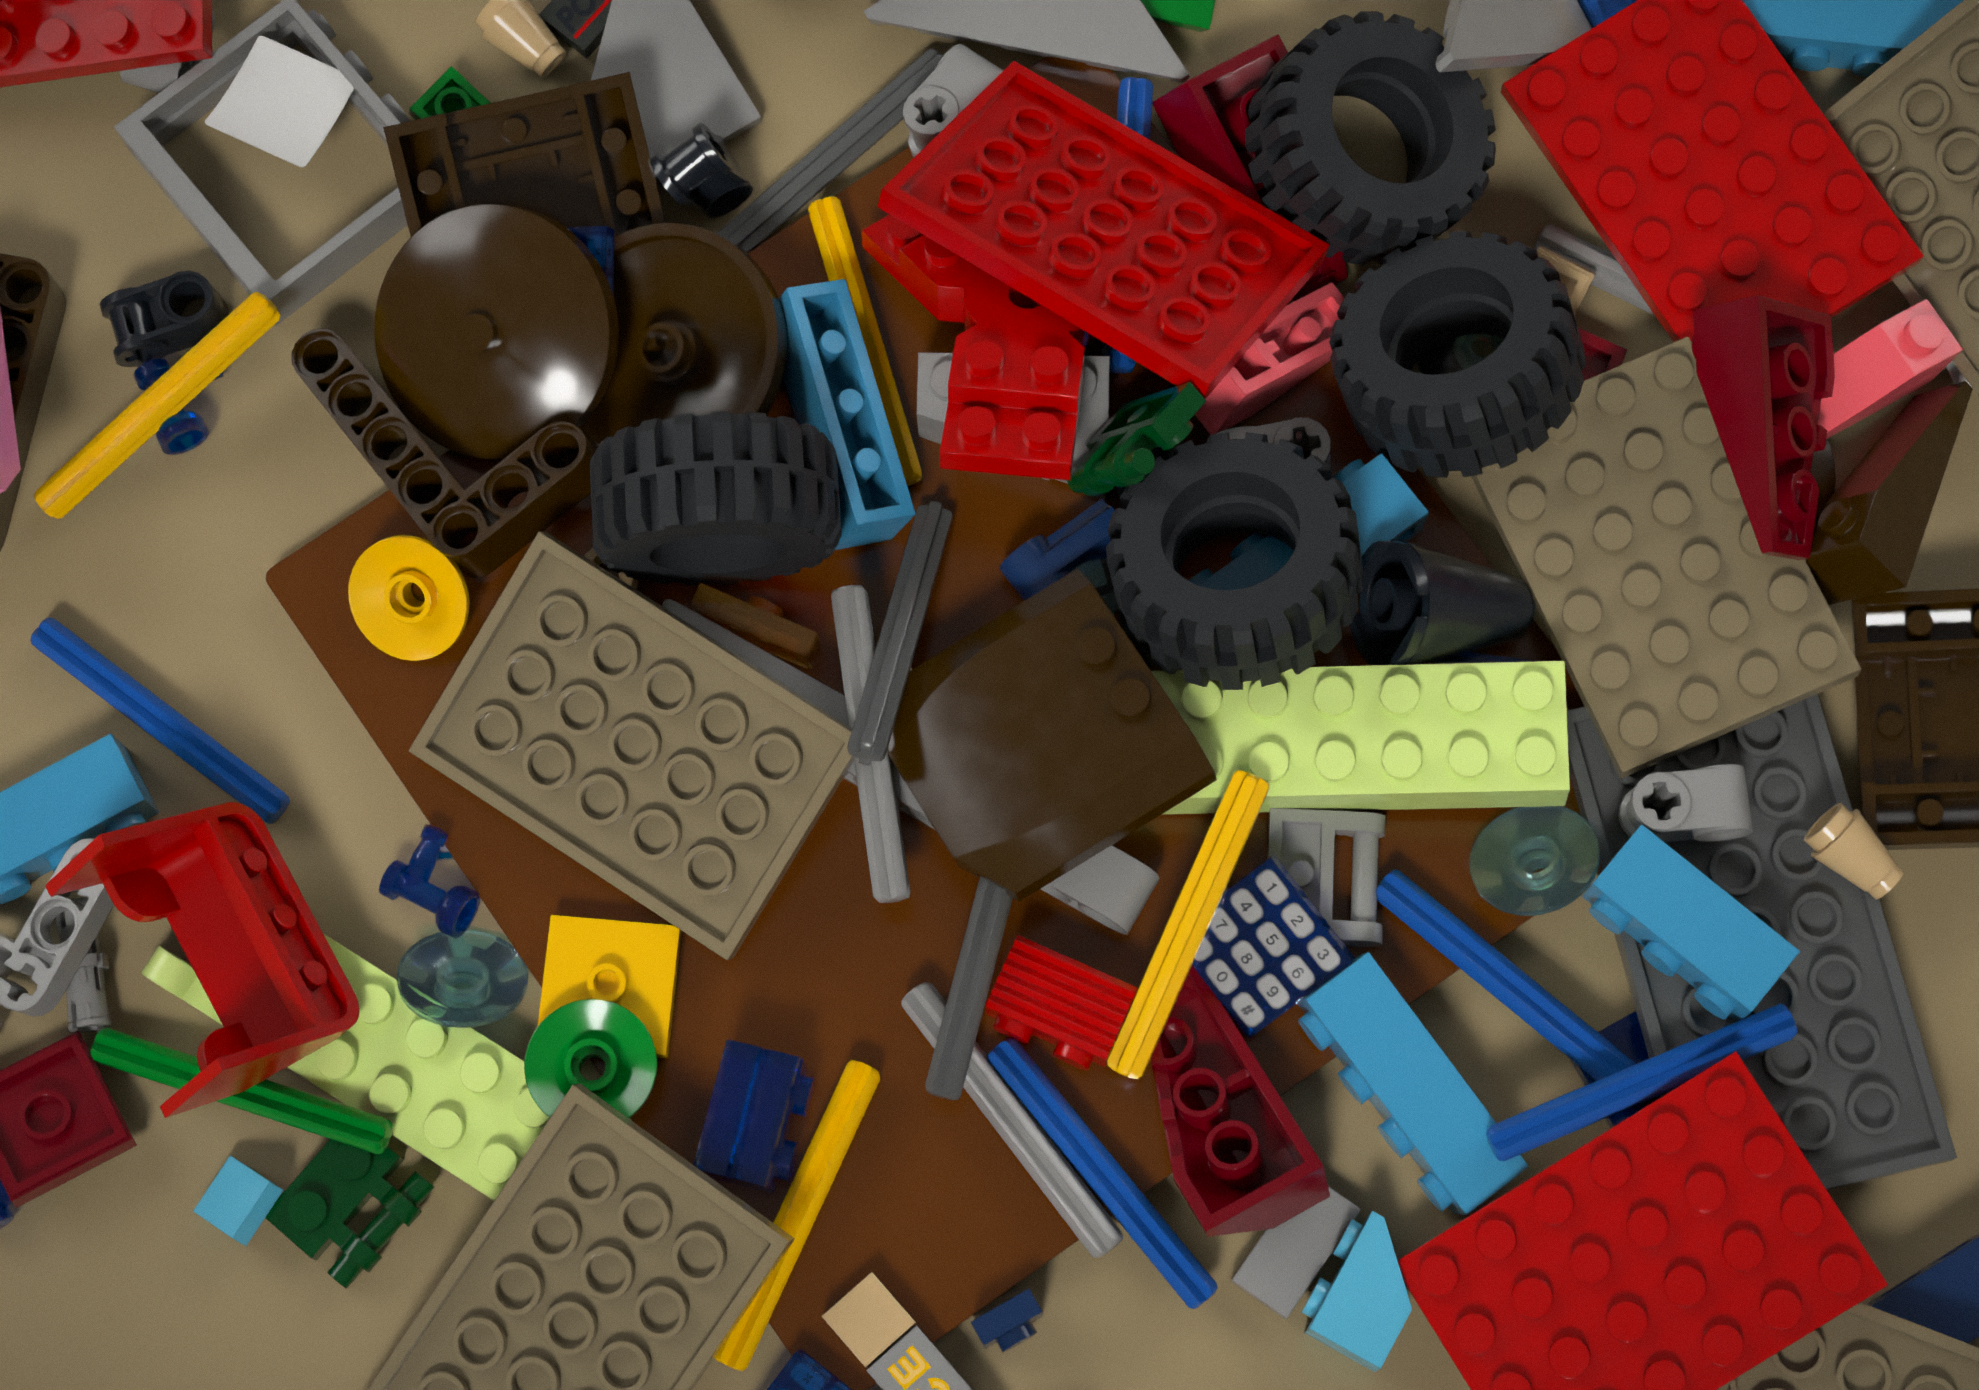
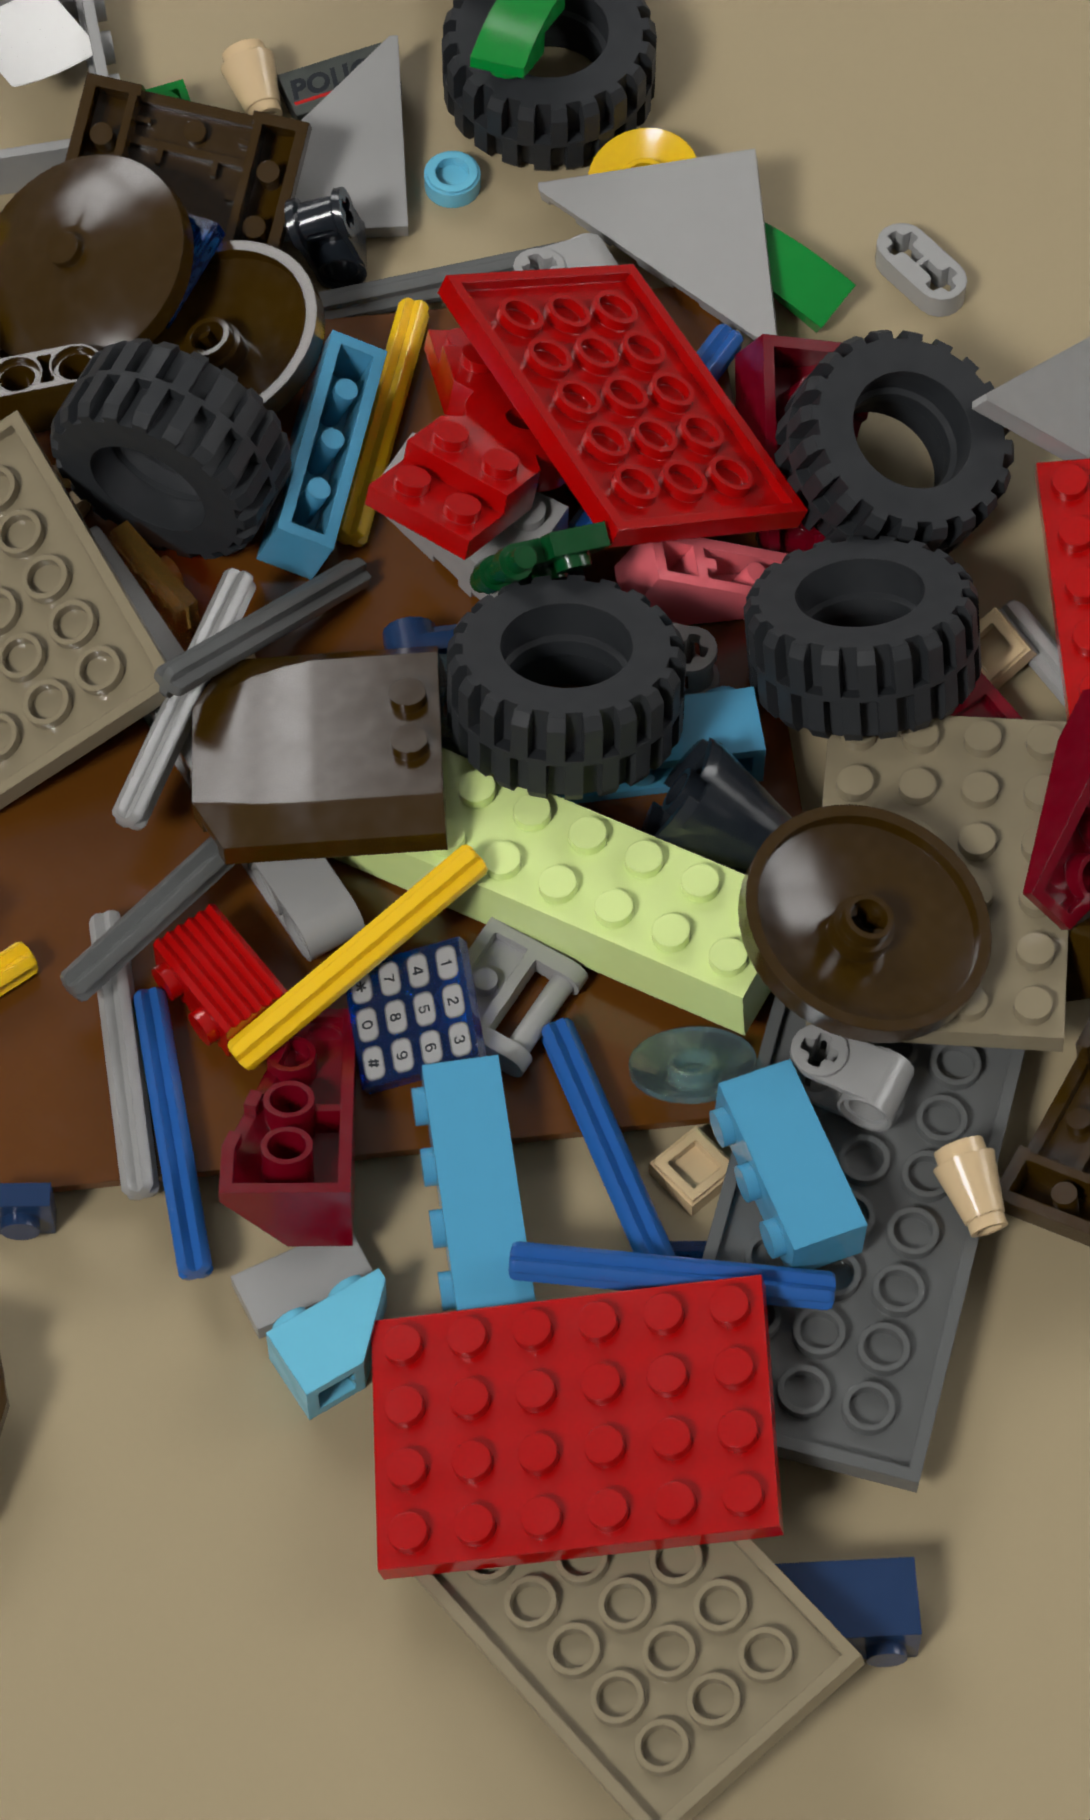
camera: 25 degrees right, 15 degrees down
(769, 41) = (452, 179): none -> medium azure tile
(1575, 949) = (691, 1170): none -> tan tile
(1642, 660) = (864, 923): none -> dark brown dish

